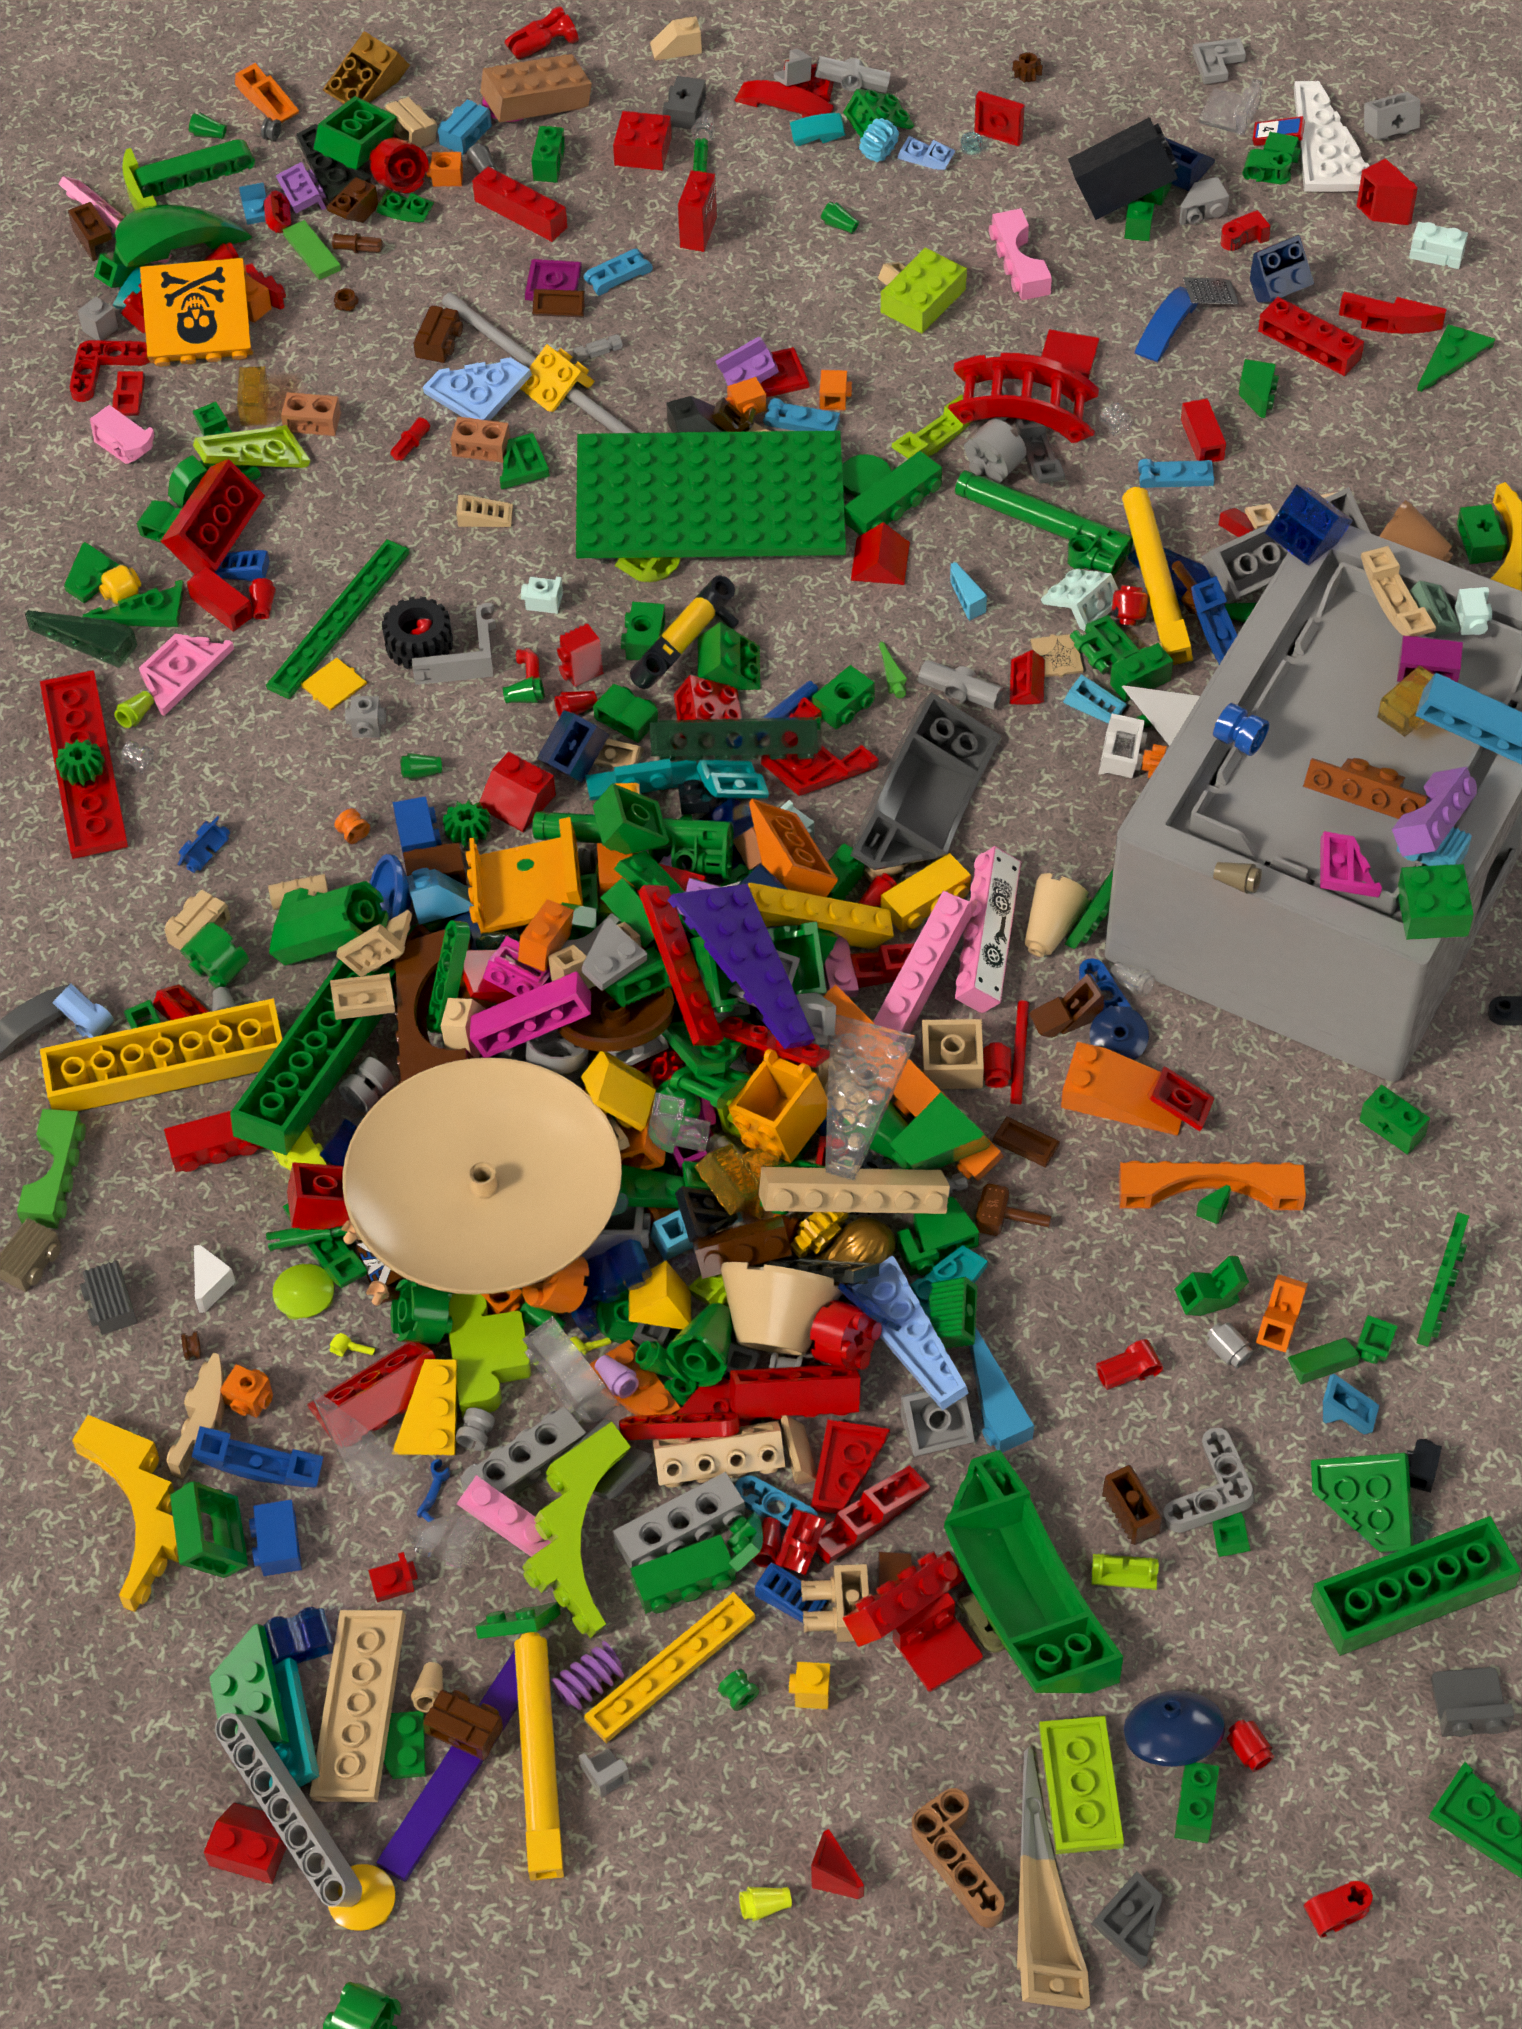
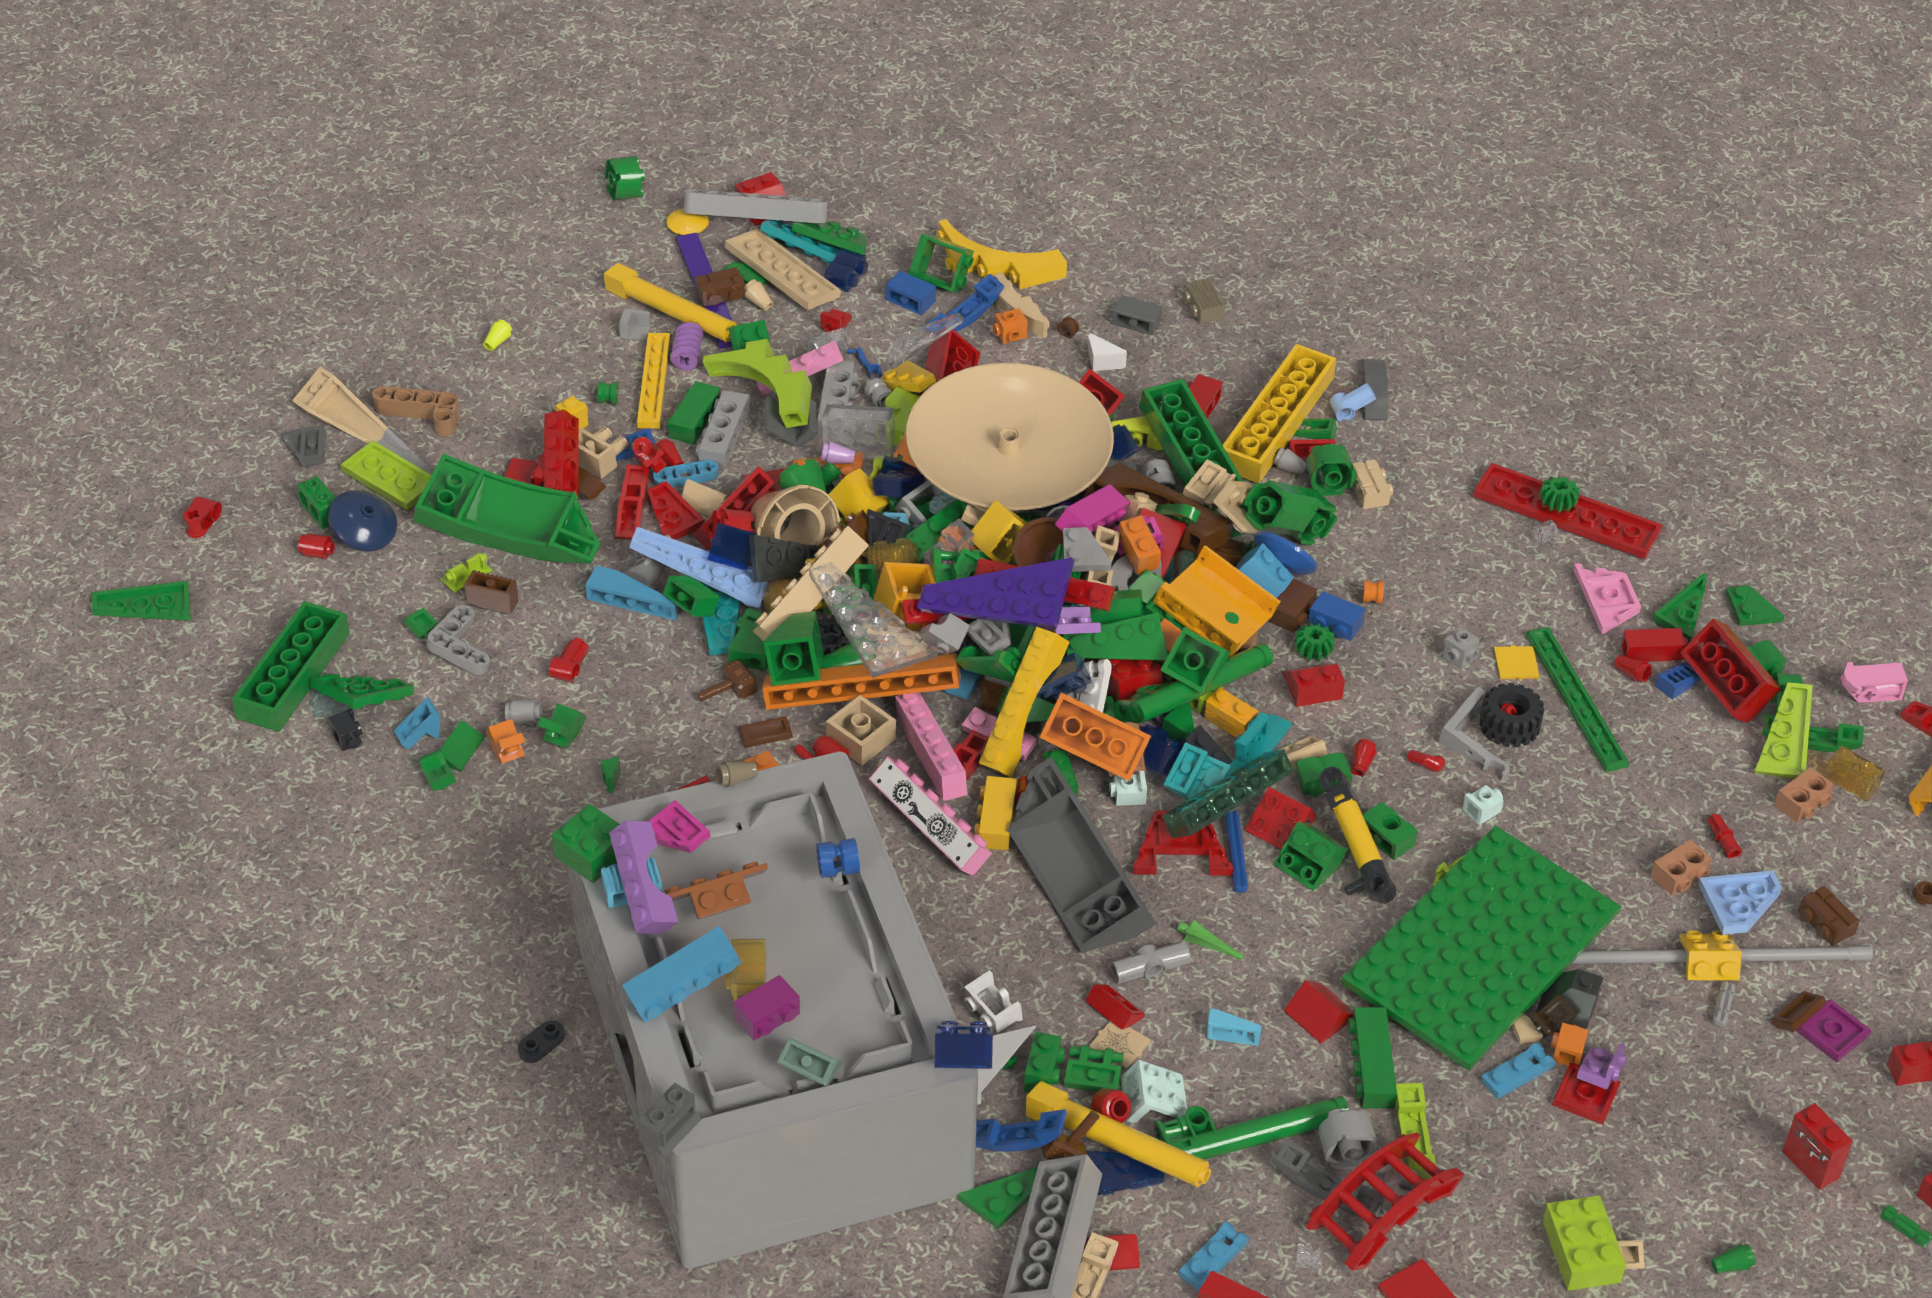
camera: 130 degrees right, 10 degrees down
(45, 1199) = (1233, 324): bright green arch -> none
(92, 636) = (1678, 570): clear green slope -> none
(119, 584) = (1717, 604): yellow head -> none
(133, 709) = (1590, 553): lime cone -> none
(208, 836) = (1431, 516): blue hinge -> none
(313, 884) = (1345, 540): tan axle -> none
(418, 766) = (1392, 650): green cone -> none
(468, 516) = (1614, 817): tan slope -> none
(523, 462) = (1635, 880): green wing -> none
(525, 691) = (1400, 741): green cone -> none
(573, 746) = (1316, 720): dark blue slope -> none
(580, 655) = (1395, 772): red brick -> none
(617, 271) = (1804, 1073): dark azure plate -> none
(679, 1426) = (774, 455): red beam -> none
(701, 1459) = (744, 459): tan brick -> none
(745, 1540) = (683, 444): green slope -> none
(833, 1871) = (474, 360): red slope -> none
(834, 389) = (1526, 1104): orange brick -> none
(844, 697) = (1209, 890): green brick -> none
(862, 472) = (1417, 1063): green tile -> none
(1054, 912) = (909, 858): tan cone -> none
(1085, 705) = (1058, 1017): medium azure slope -> none
(1152, 758) = (962, 1008): orange gear -> none
(1272, 1184) = (664, 755): orange arch -> none
(1393, 594) = (839, 1043): tan slope -> none
(1394, 1119) = (548, 900): green brick -> none
(1446, 1277) = (429, 834): green wing -> none
(1470, 1702) = (207, 641): dark grey bracket -> none
(1473, 610) = (776, 1070): light aqua brick -> none

